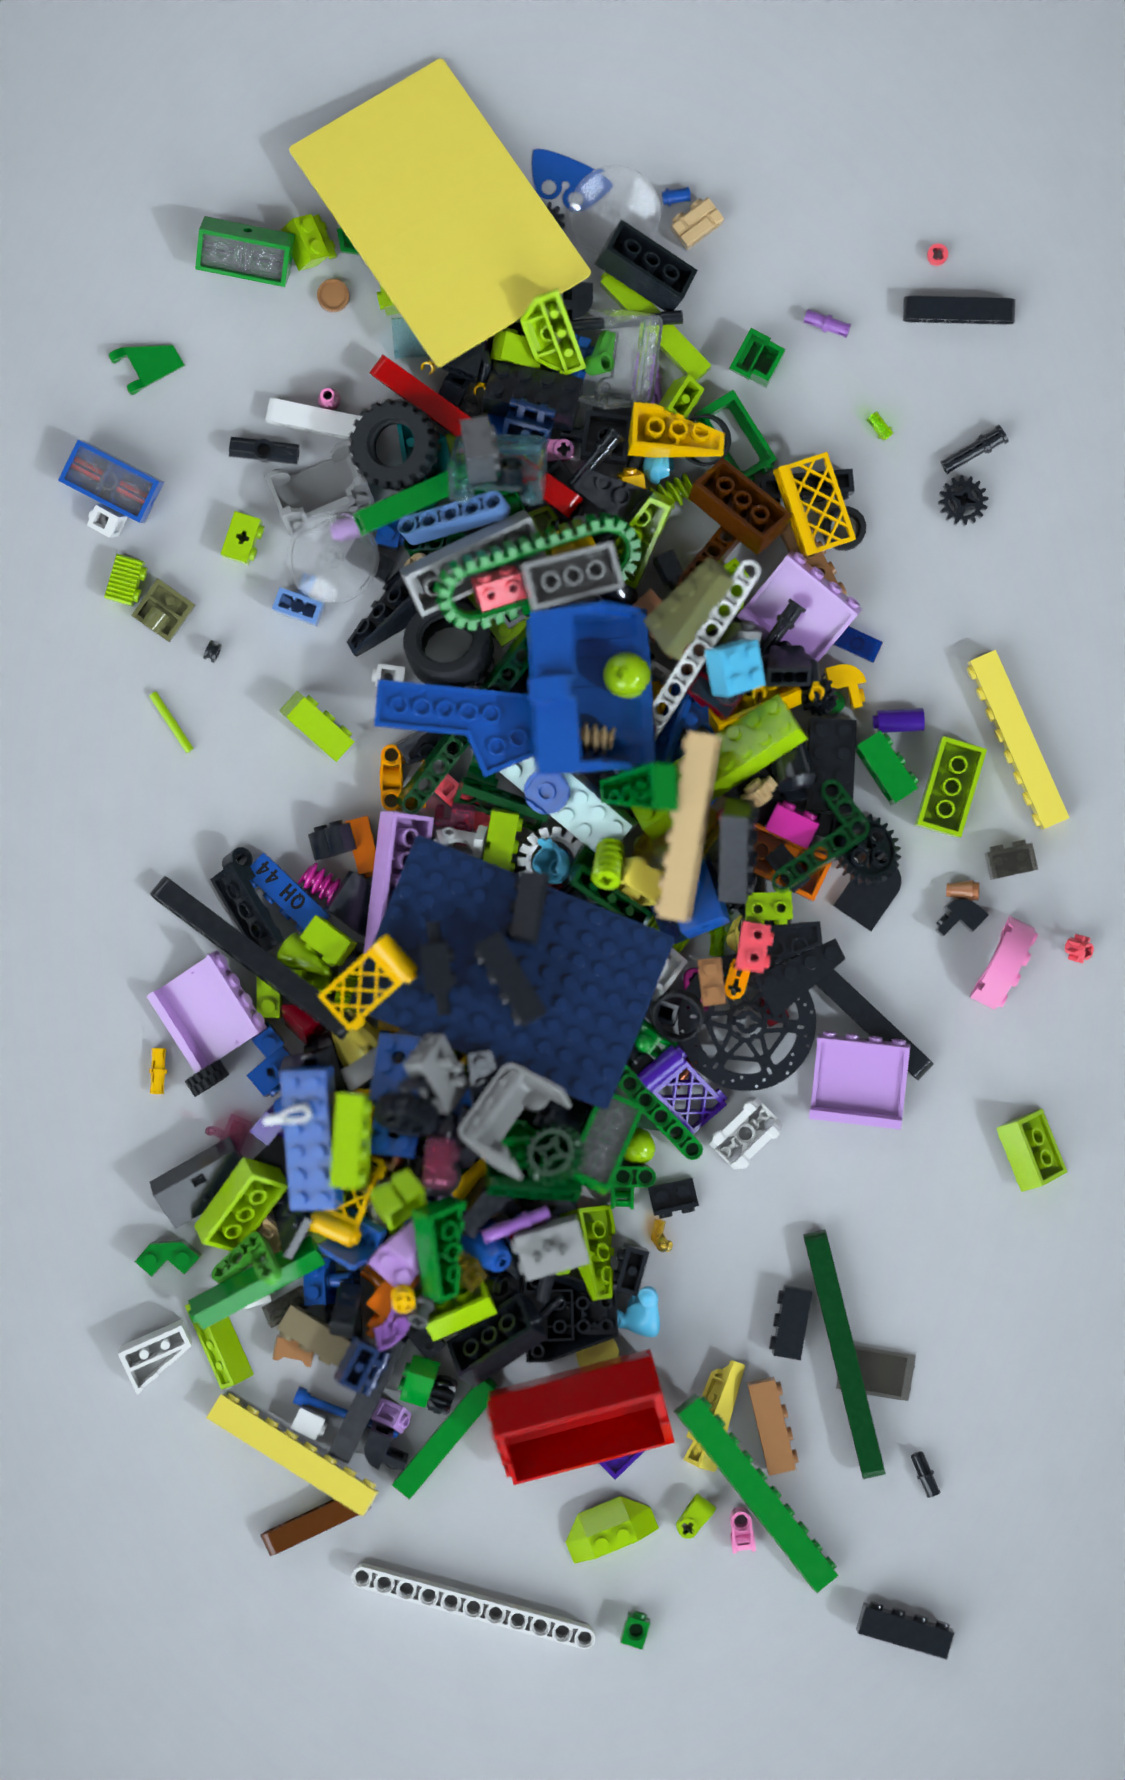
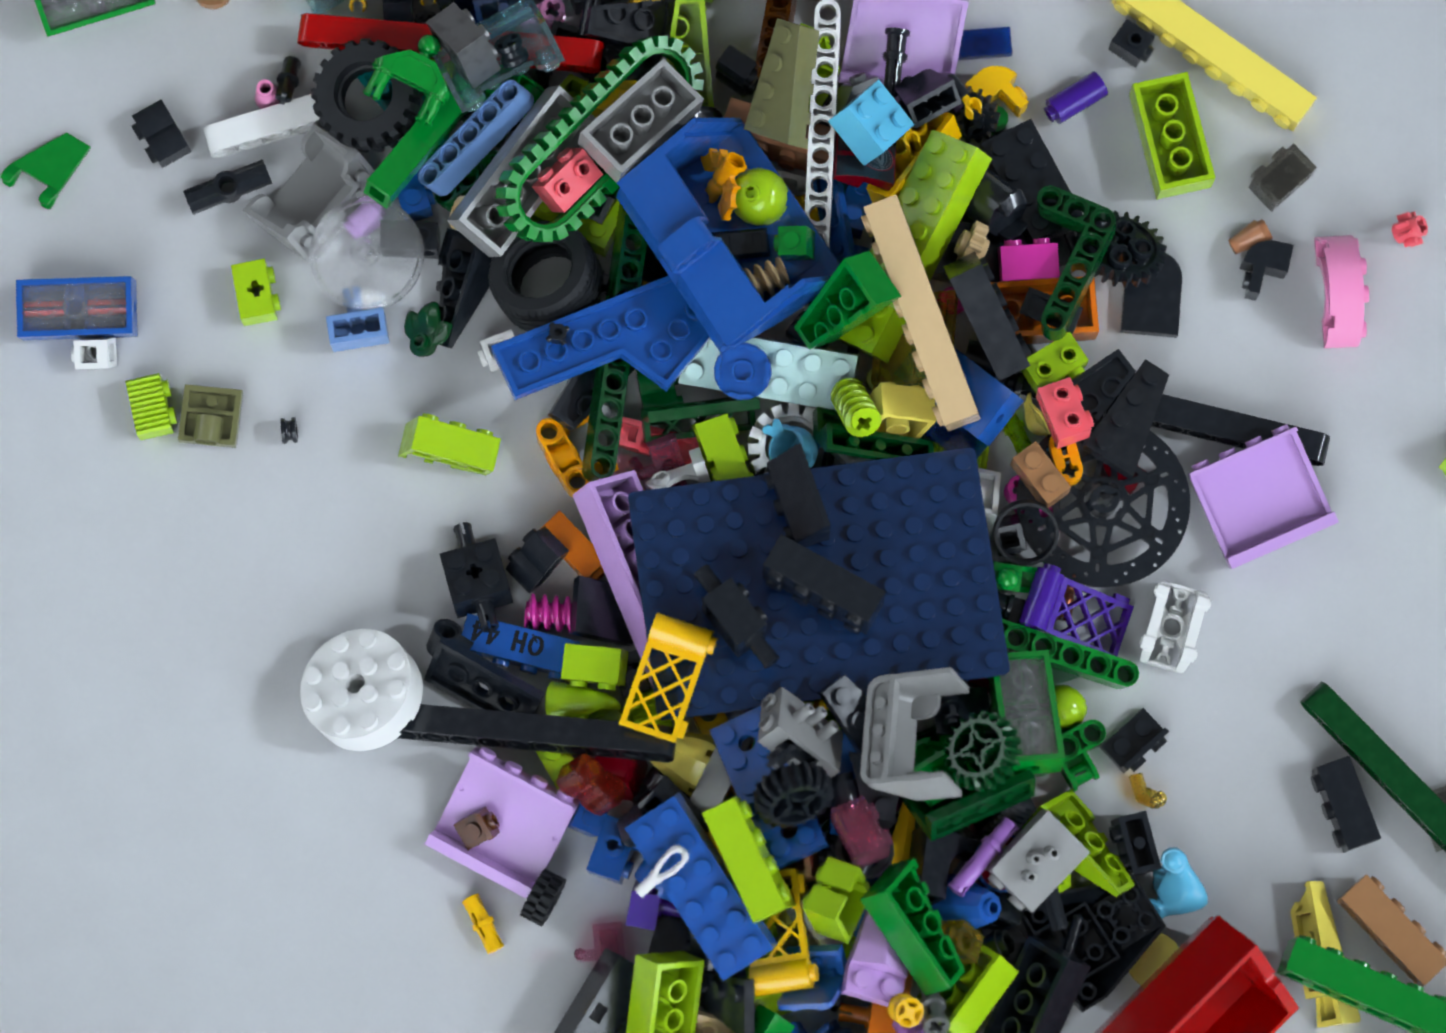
camera: 30 degrees left, 10 degrees down
(159, 844) = (361, 689): none -> white brick
(171, 722) = (285, 532): lime bar -> none
(188, 1005) = (477, 828): none -> reddish brown bracket
(238, 384) = (161, 134): none -> black brick
(279, 1023) = (591, 784): none -> clear red brick
(292, 841) = (481, 562): none -> black brick
(347, 630) = (427, 328): none -> dark green plate
(348, 395) = (287, 79): none -> black axle
(429, 696) = (557, 333): none -> black piece
(433, 452) = (415, 71): none -> green connector
(596, 701) = (746, 243): none -> black tile
(608, 649) = (725, 168): none -> light orange animal
(631, 724) = (795, 243): none -> green brick
(886, 767) = (1092, 151): green brick -> none
(963, 703) = (1132, 43): none -> black brick

